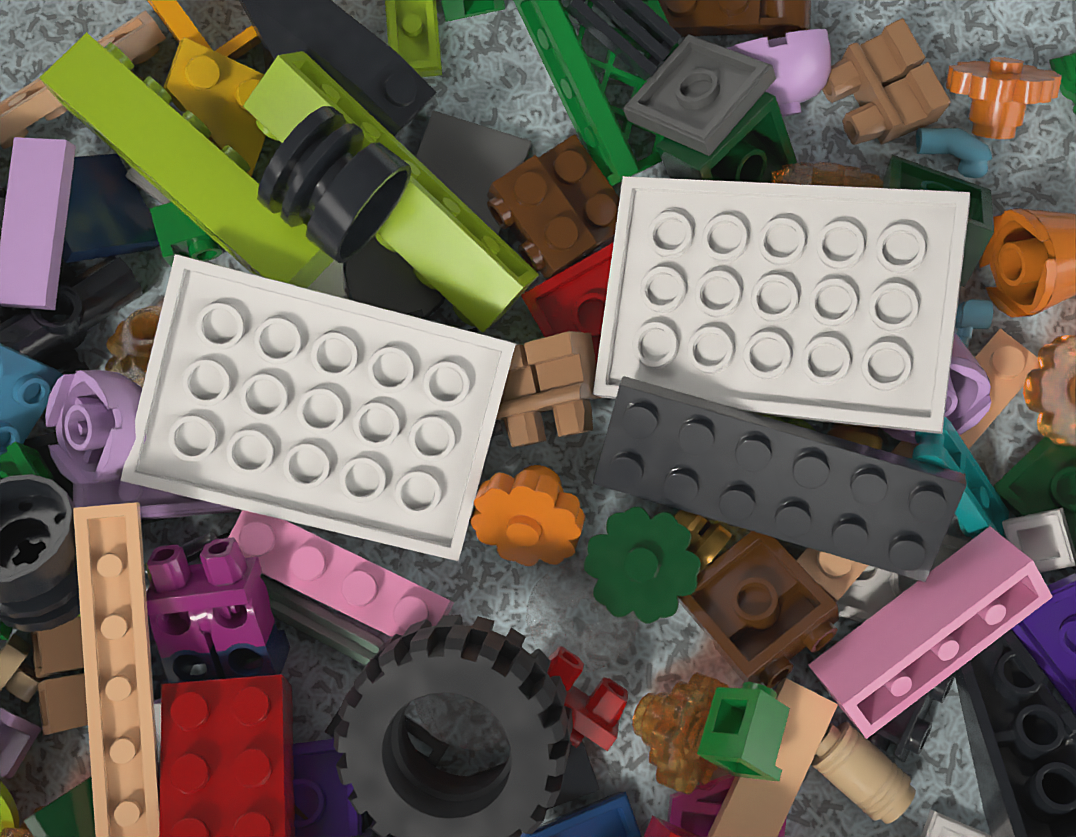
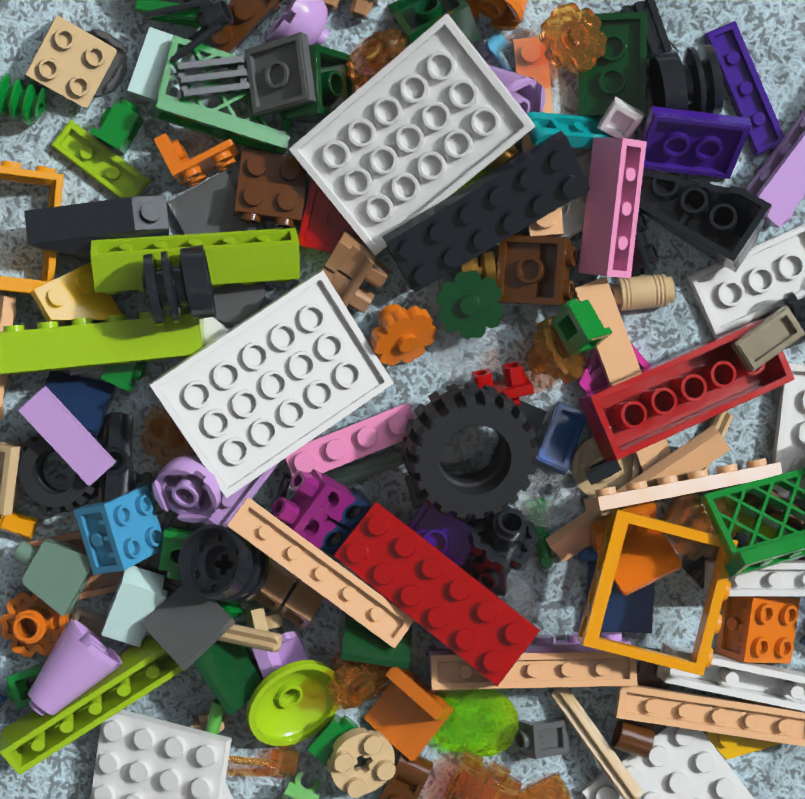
camera: 45 degrees left, 10 degrees up
(503, 99) = (193, 170): none -> orange bracket

